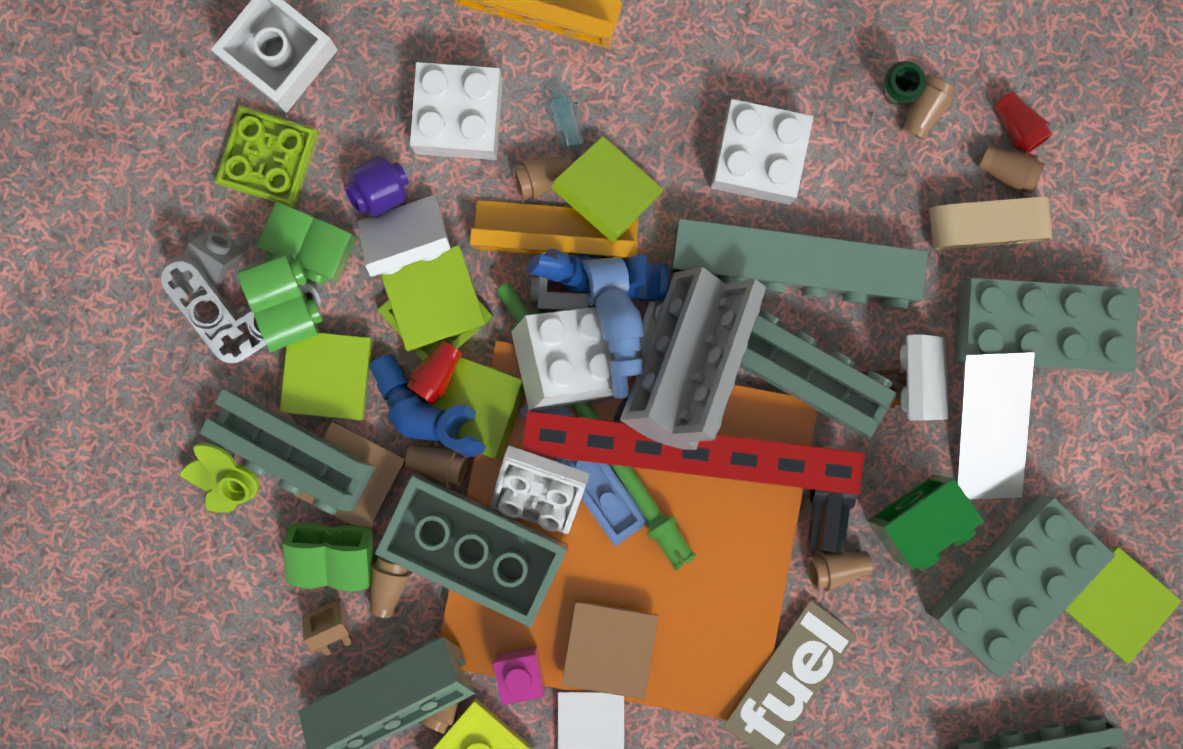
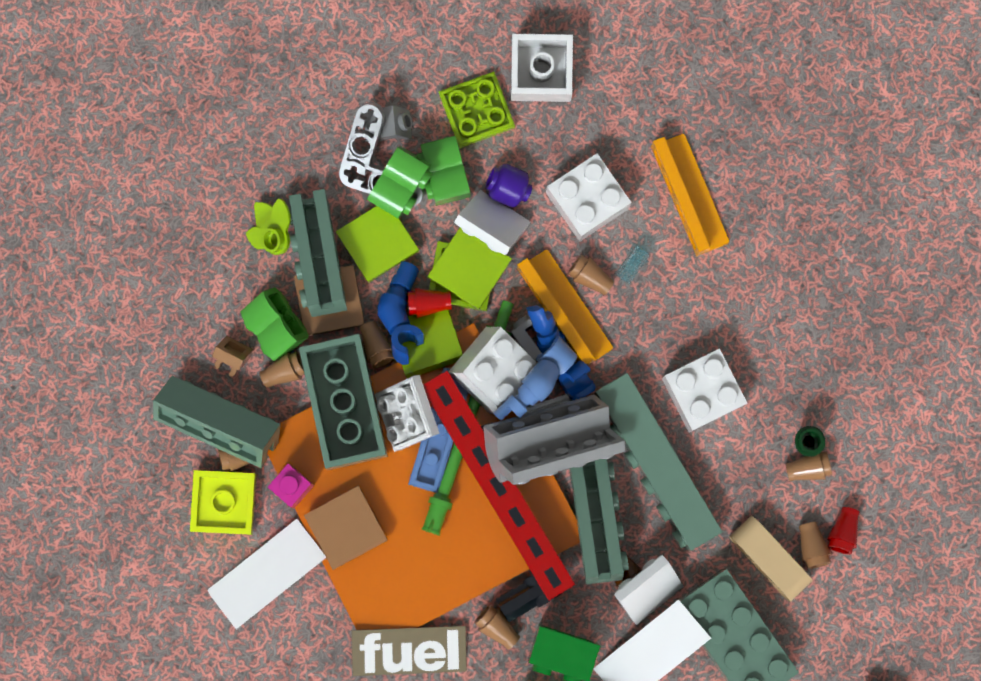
camera: 55 degrees right, 5 degrees down
(607, 189) = (612, 318): lime tile -> none

